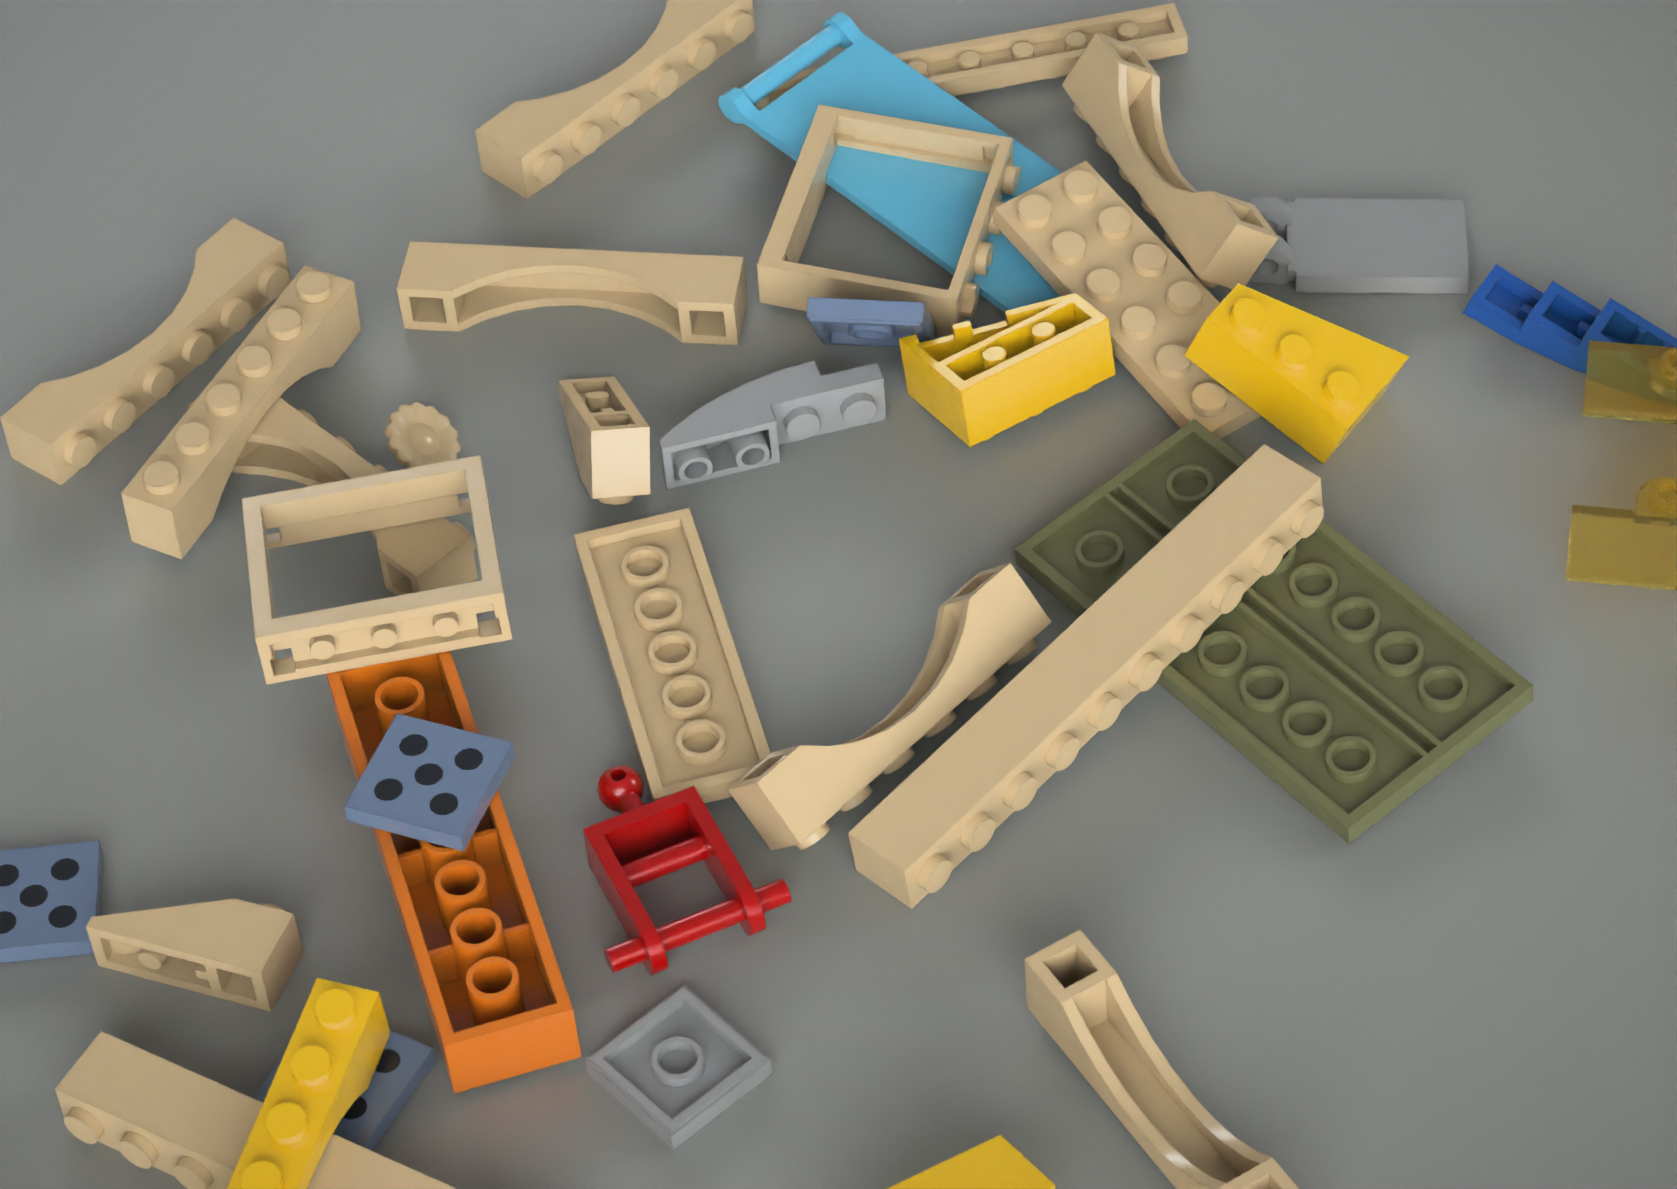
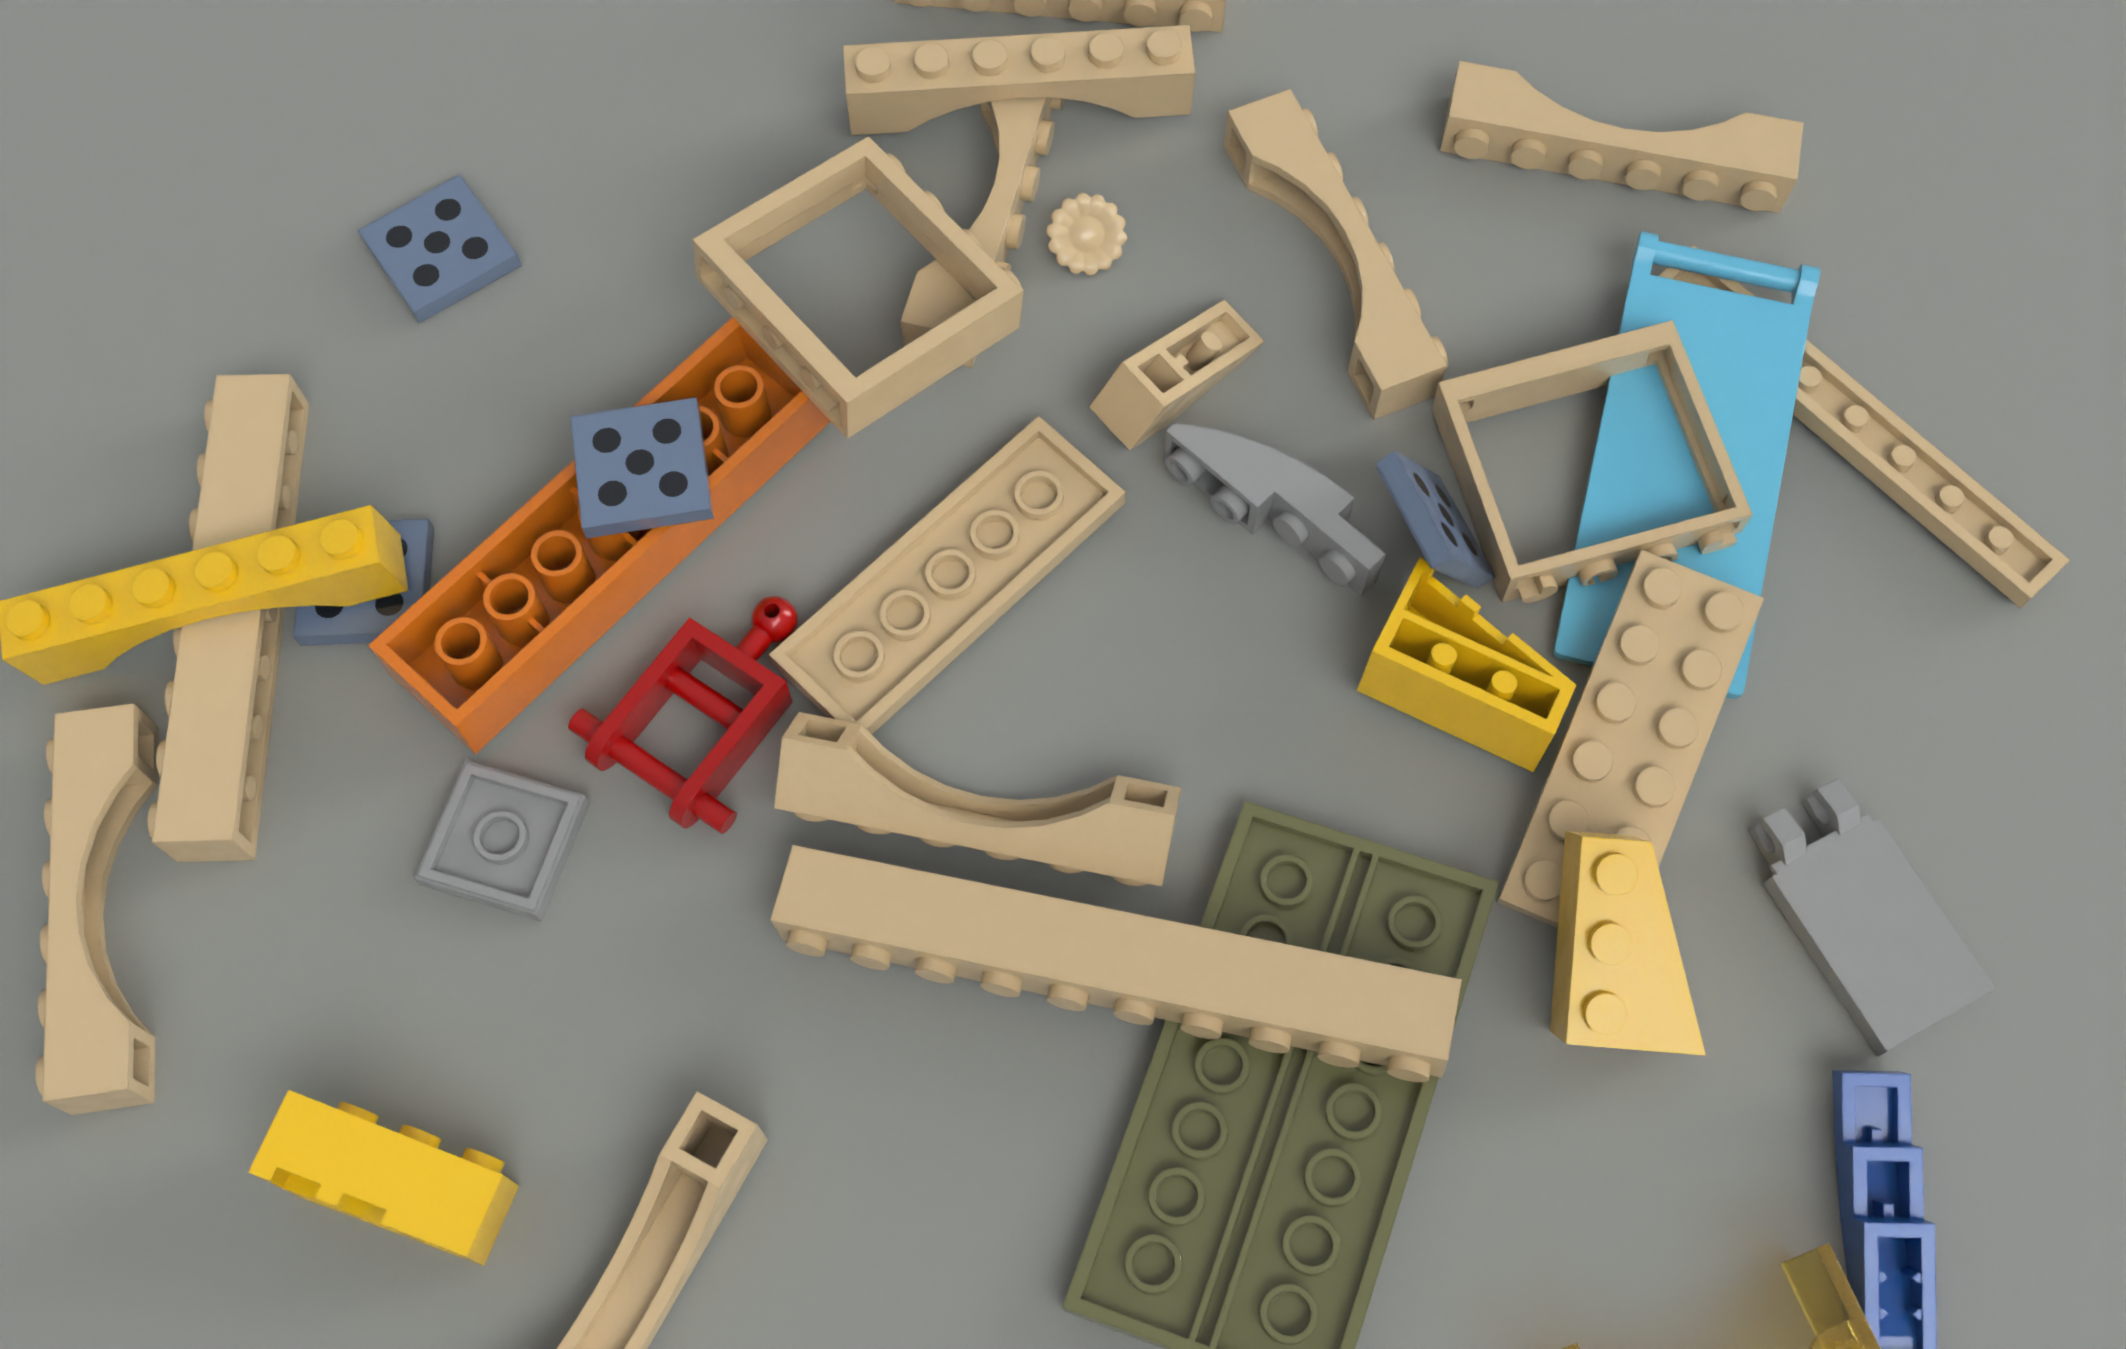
camera: 55 degrees right, 20 degrees up
(210, 948) = (441, 415): tan slope -> none
(1121, 102) = (1764, 762): tan arch -> none

